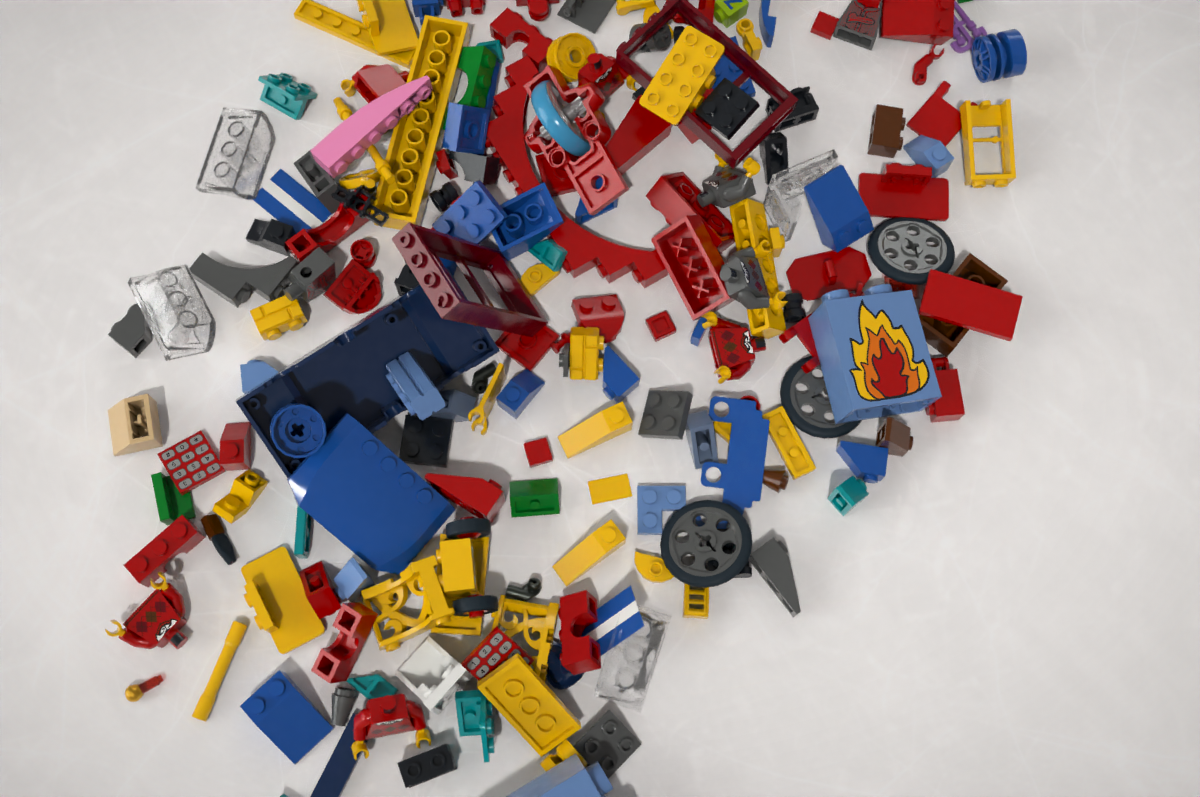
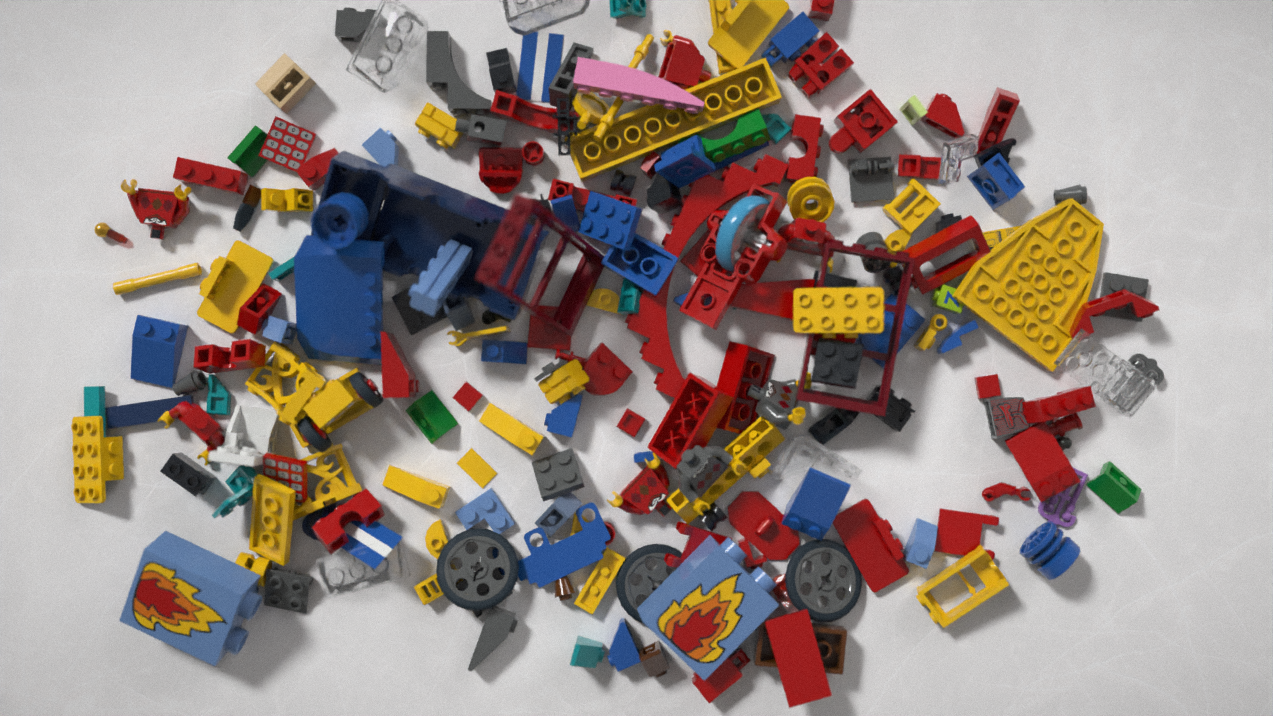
camera: 55 degrees right, 15 degrees up
(526, 592) = (356, 458): pearl dark grey arm -> none
(885, 131) = (919, 497): reddish brown brick -> none

